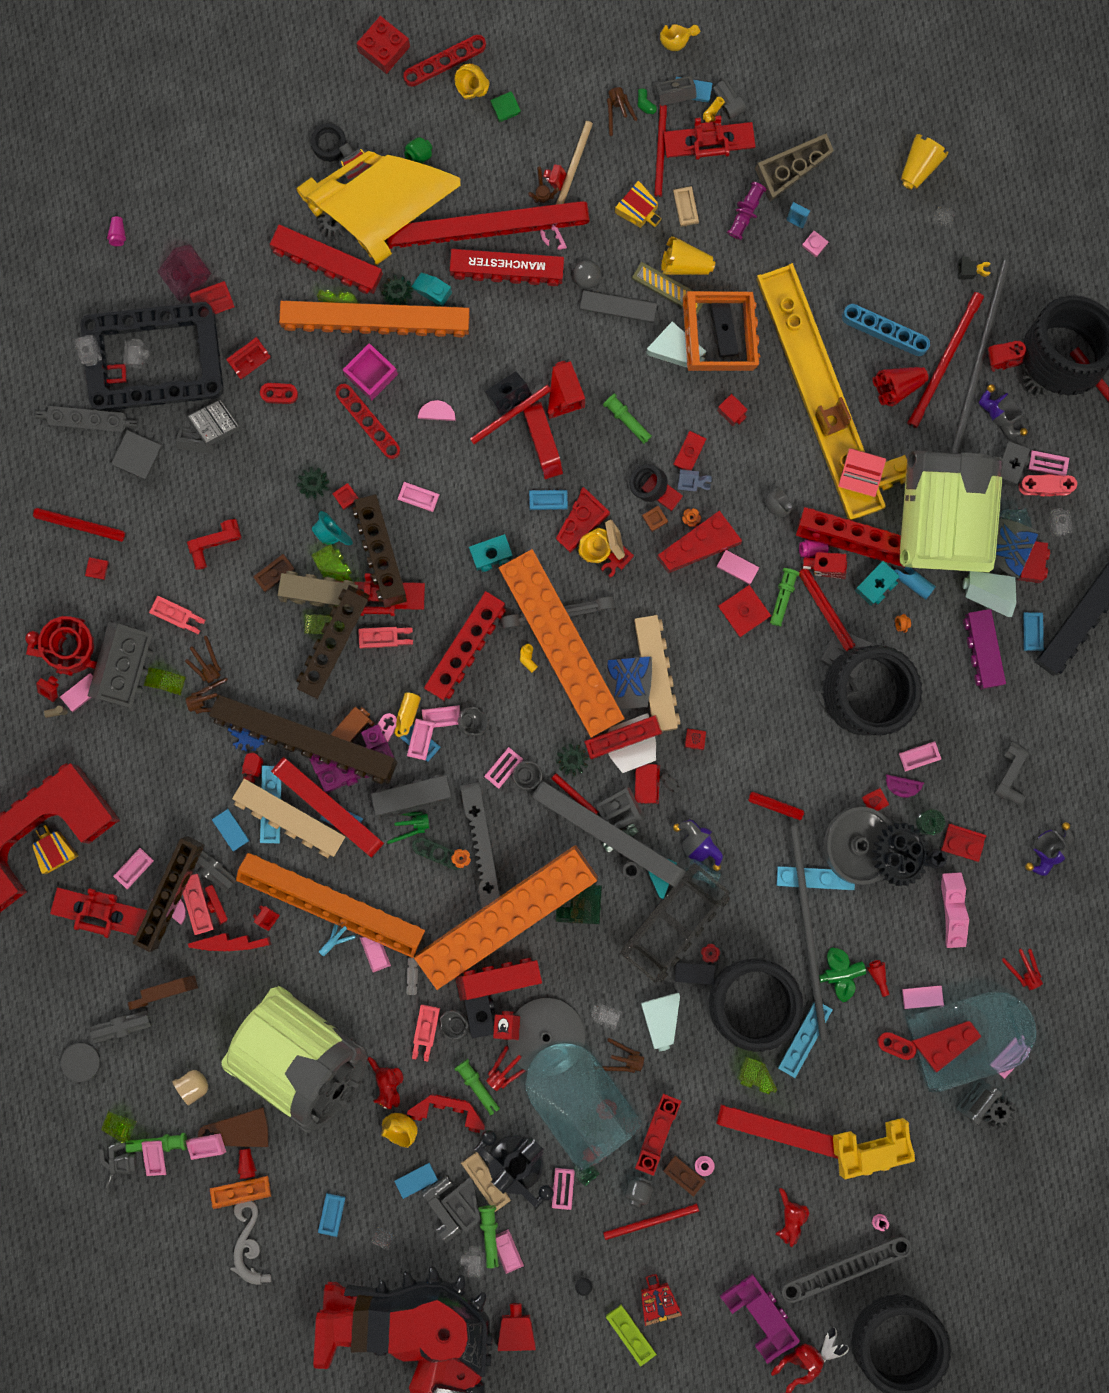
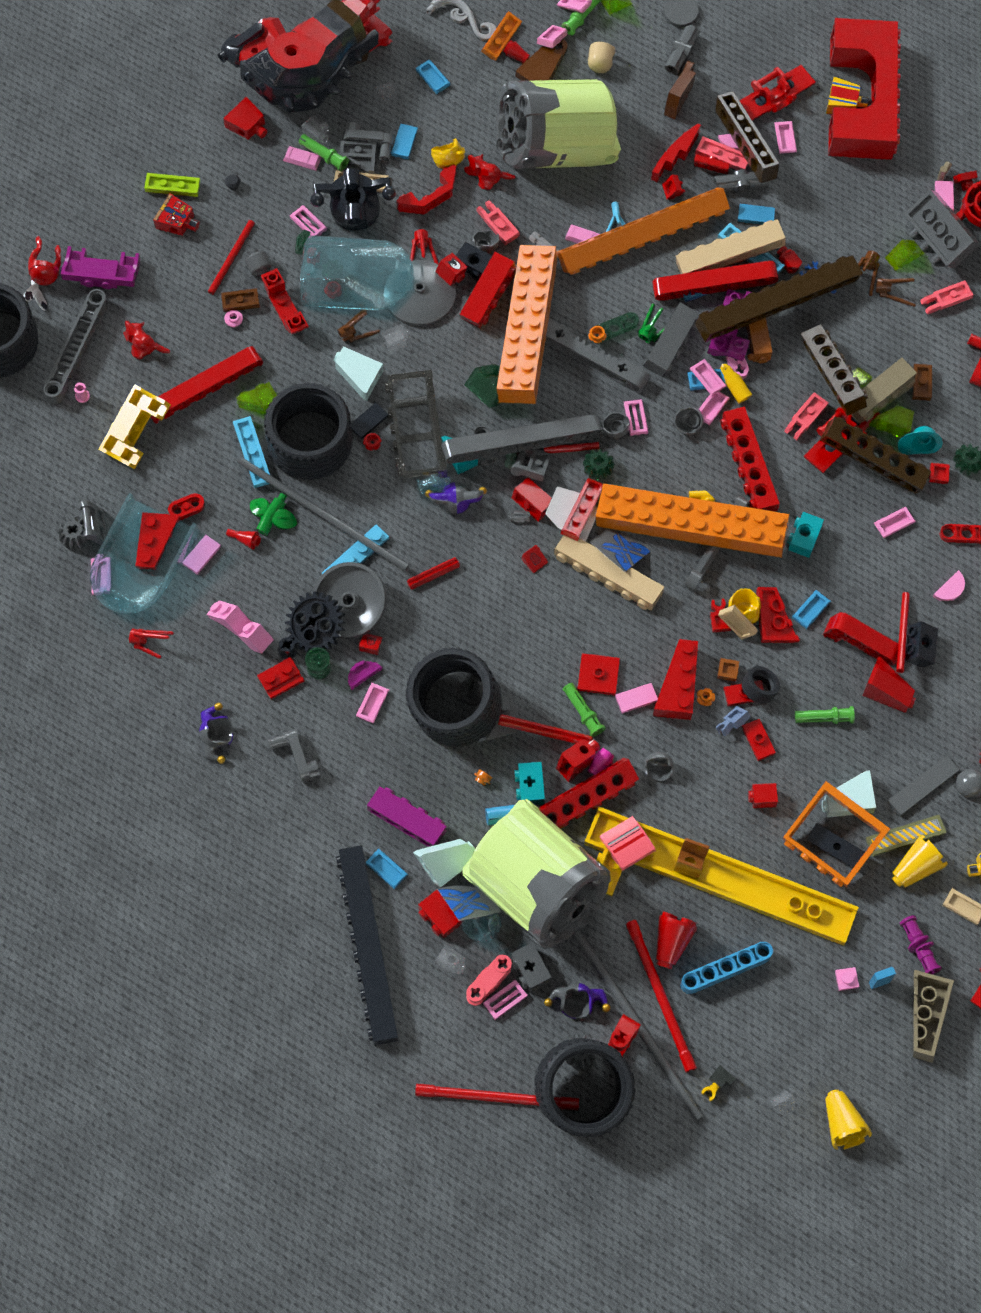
camera: 130 degrees right, 15 degrees down
(471, 1079) = (436, 224): bright green pin -> none

